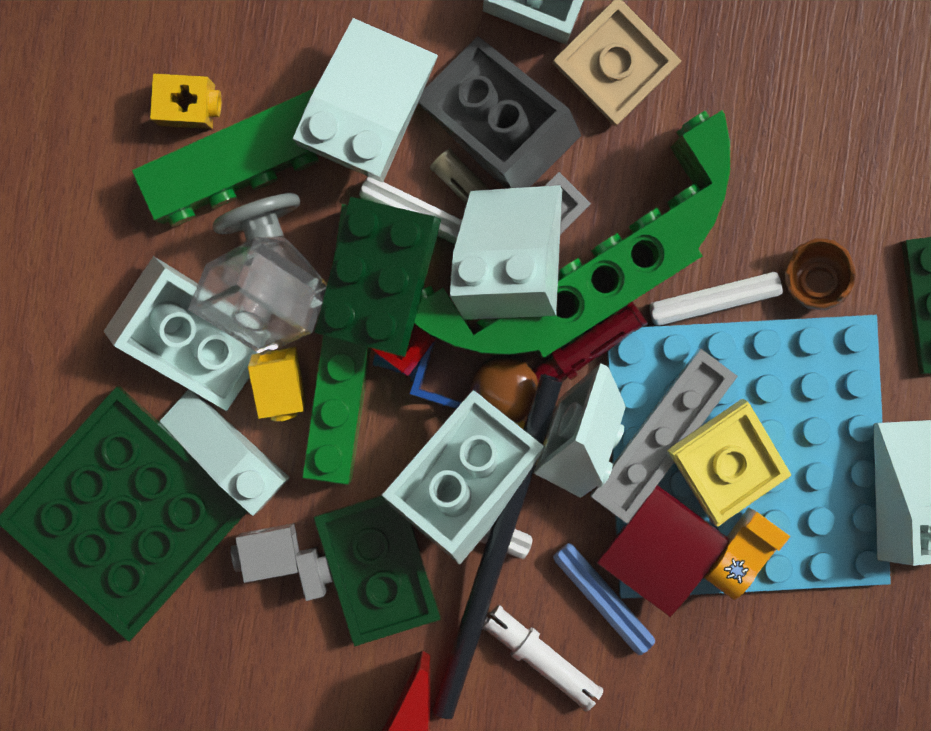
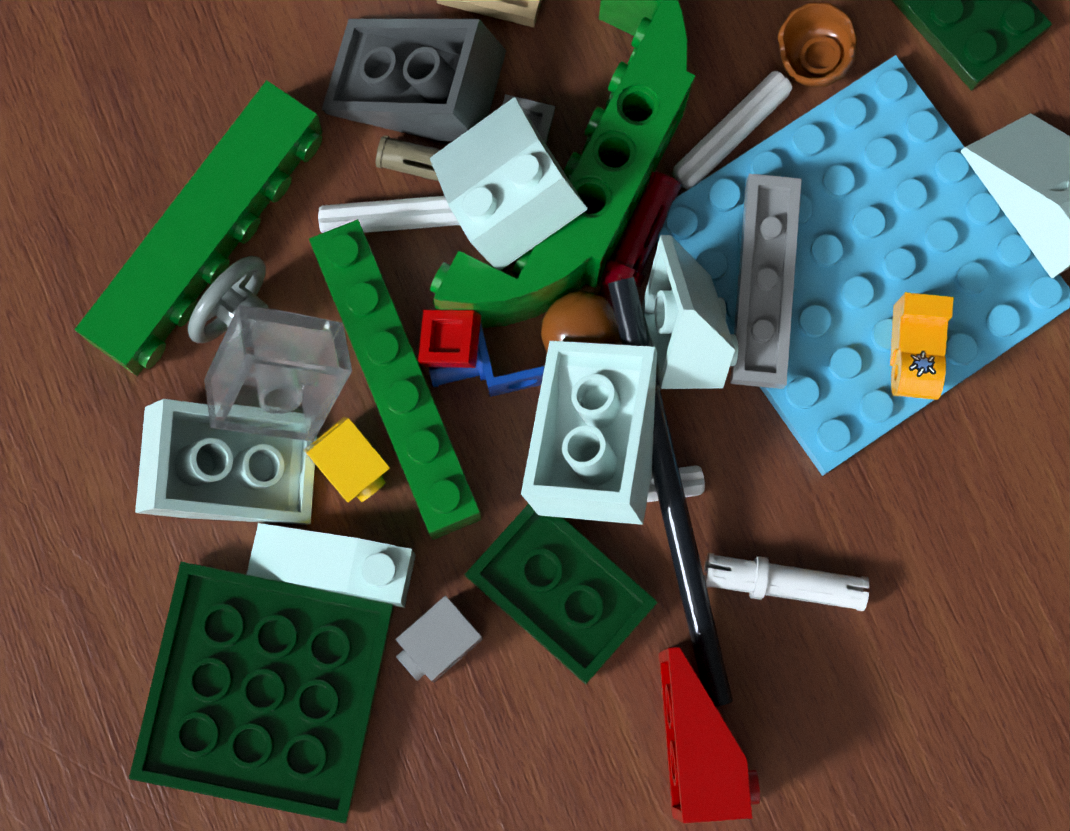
camera: 40 degrees left, 10 degrees down
(170, 89) = (73, 239): yellow brick -> none
(313, 573) = (498, 632): light grey plate -> none
(365, 100) = (273, 128): light aqua slope -> none
(378, 276) = (386, 278): dark green plate -> none
(604, 599) = (810, 485): medium blue axle -> none
(663, 551) = (838, 394): dark red slope -> none
(729, 462) = (847, 267): light yellow tile -> none

